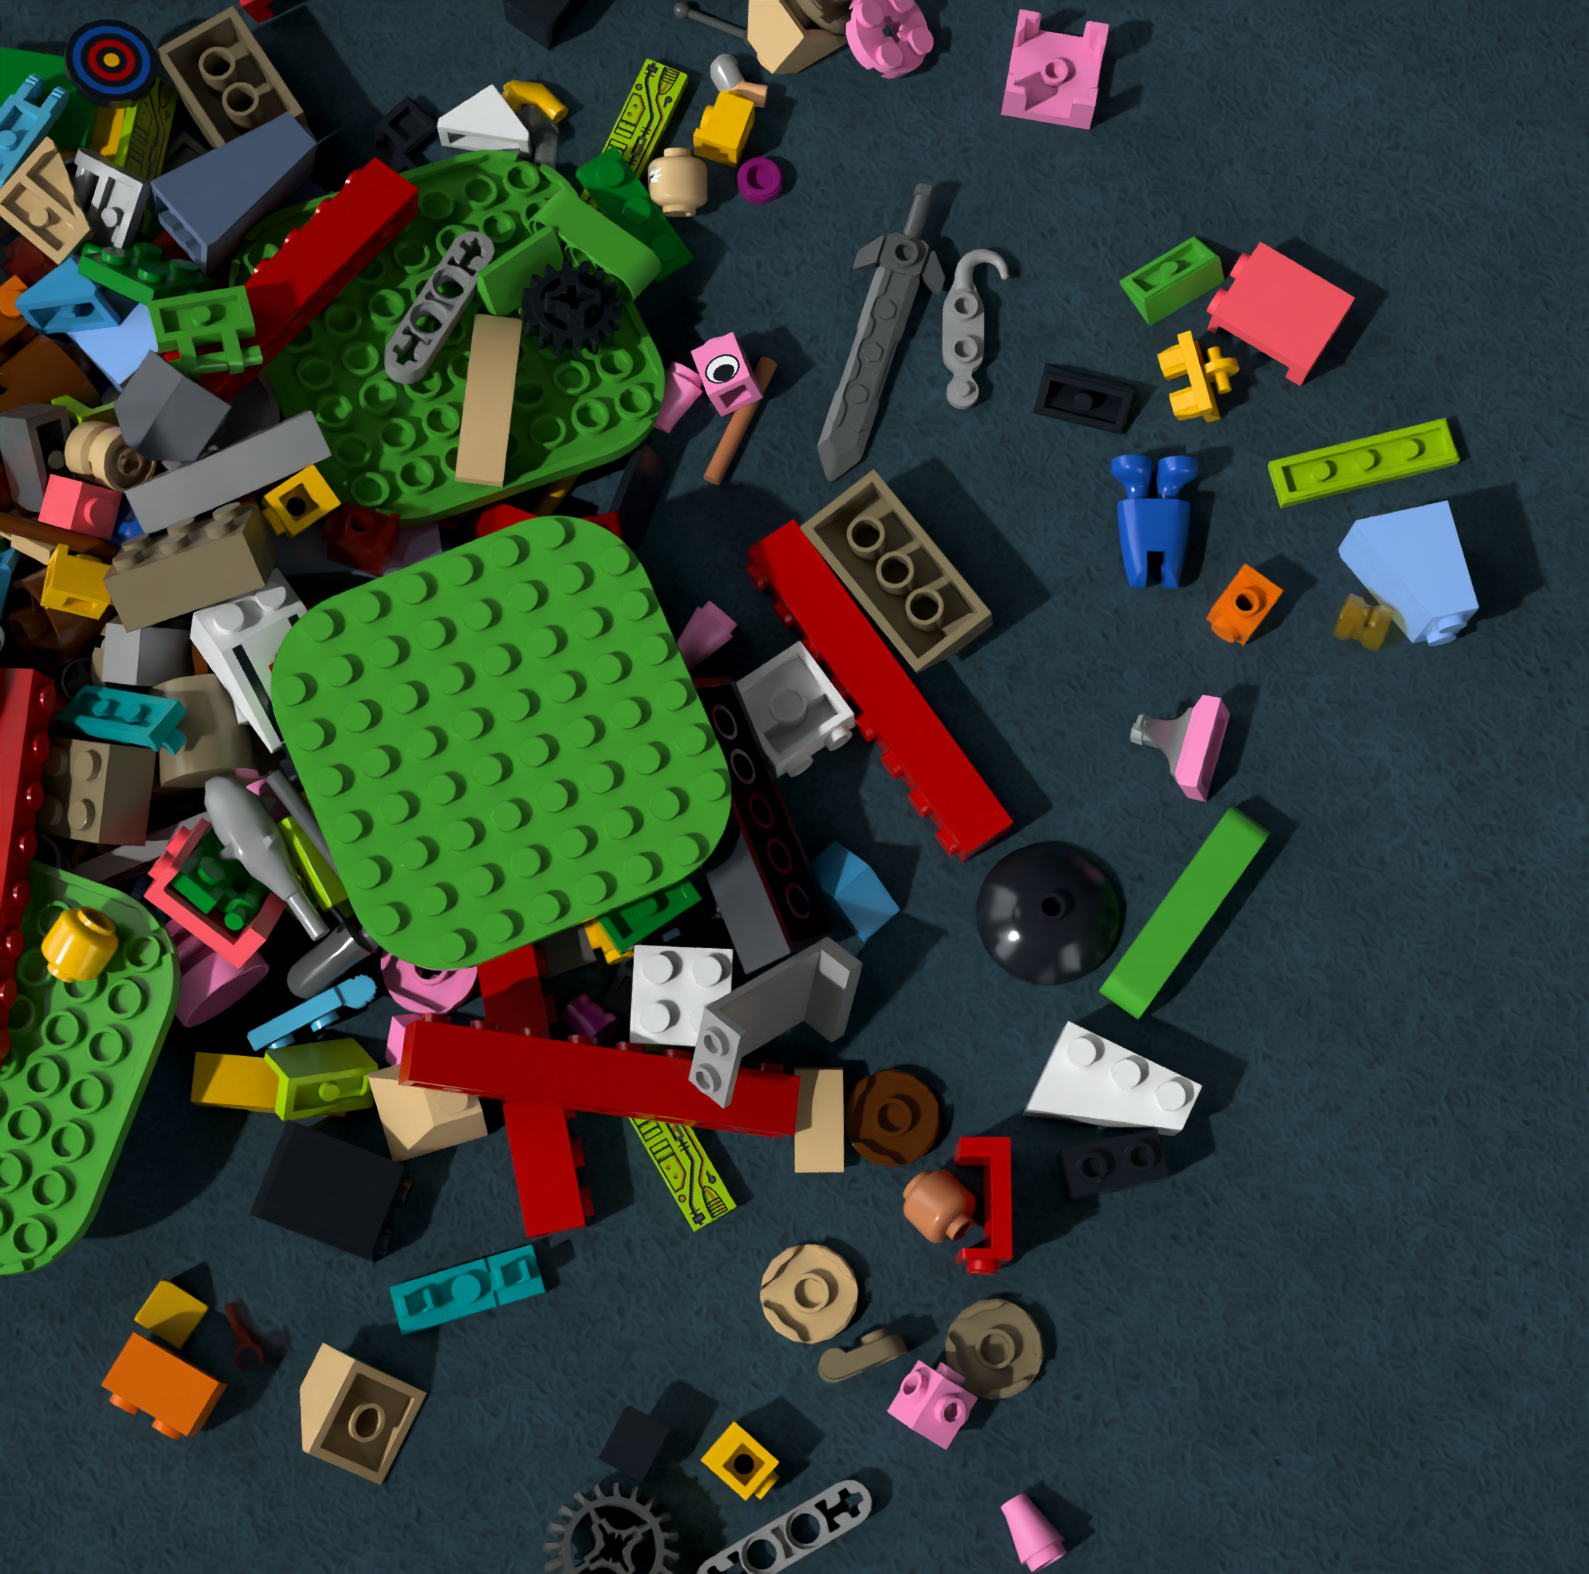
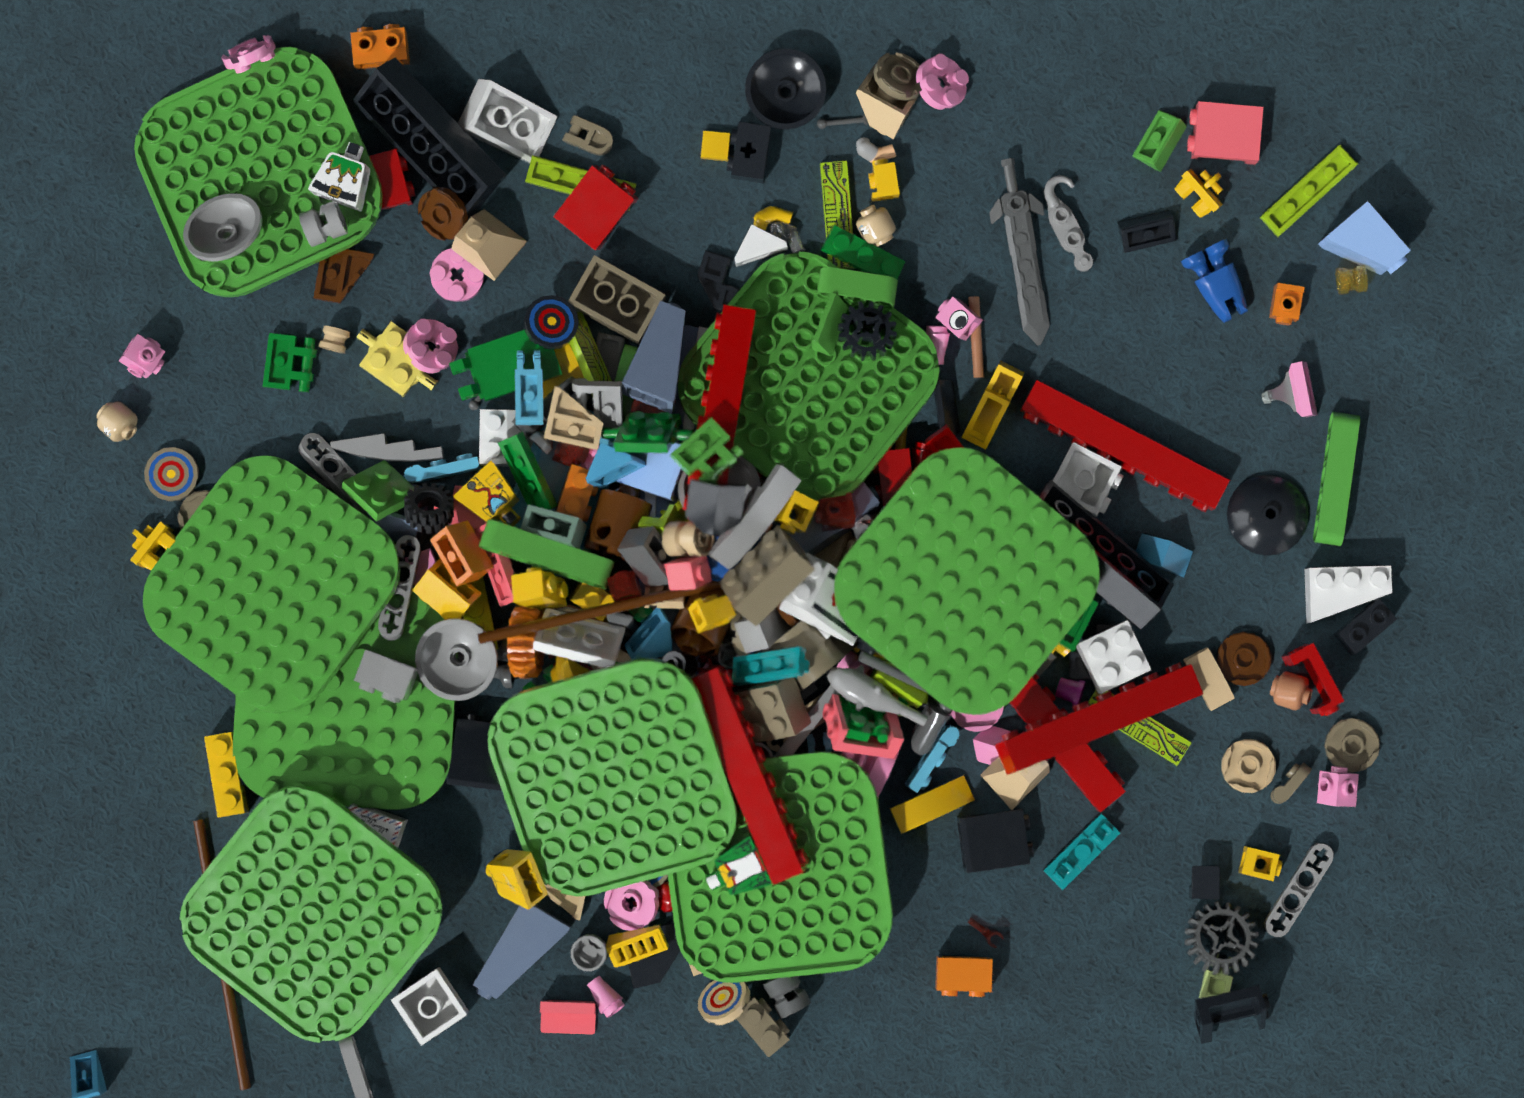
camera: 25 degrees left, 10 degrees up
(80, 944) = (817, 789): yellow head -> none
(171, 1313) = (945, 938): yellow slope -> none
(321, 1078) = (956, 787): lime panel -> none
(355, 1413) = (1061, 938): tan slope -> none
(434, 304) = (799, 366): light grey beam -> none
(488, 400) = (855, 402): tan slope -> none
(704, 634) = (1020, 461): bright pink cone -> none
(709, 528) = (993, 404): none -> yellow slope
(760, 180) = (915, 199): magenta tile -> none
(807, 987) = (1176, 617): light grey panel -> none
(897, 573) = (1104, 381): dark tan slope -> none
(1033, 1534) = (1416, 824): bright pink cone -> none
(1054, 73) = (1040, 58): bright pink panel -> none

